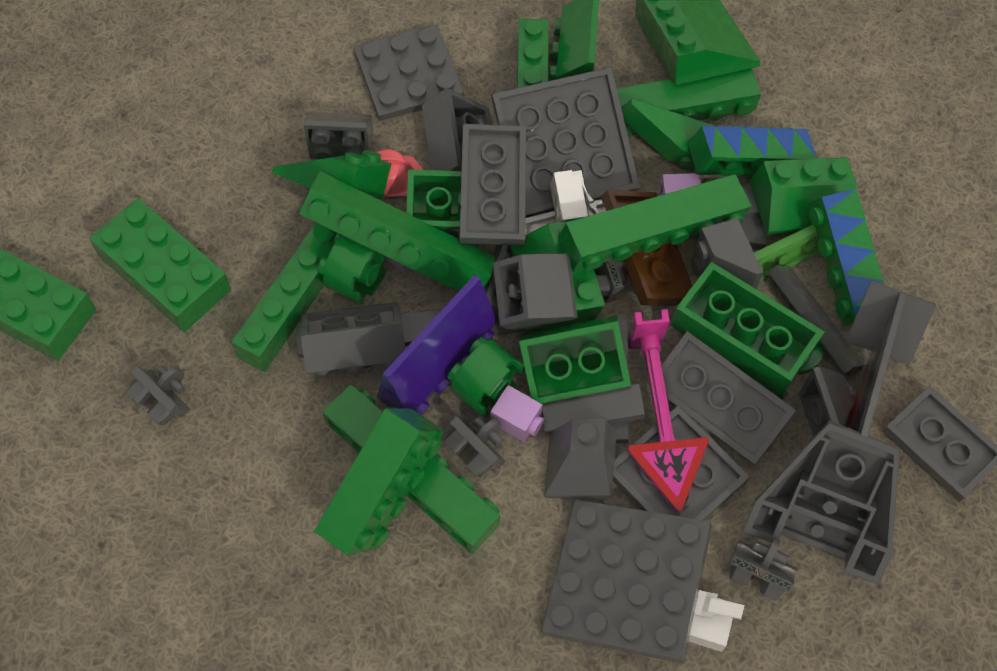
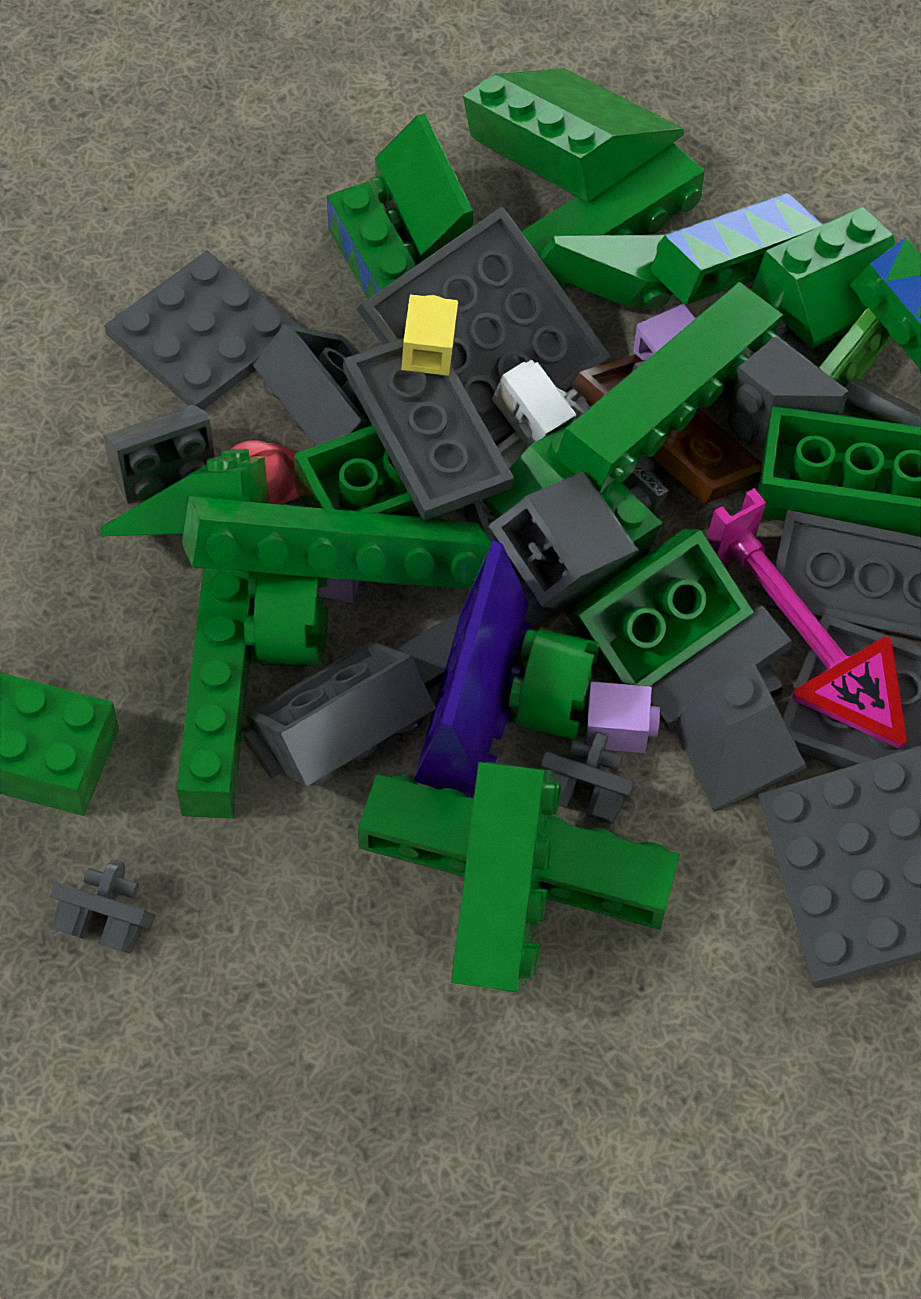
camera: 25 degrees left, 5 degrees down
(518, 129) = (429, 334): none -> light yellow brick

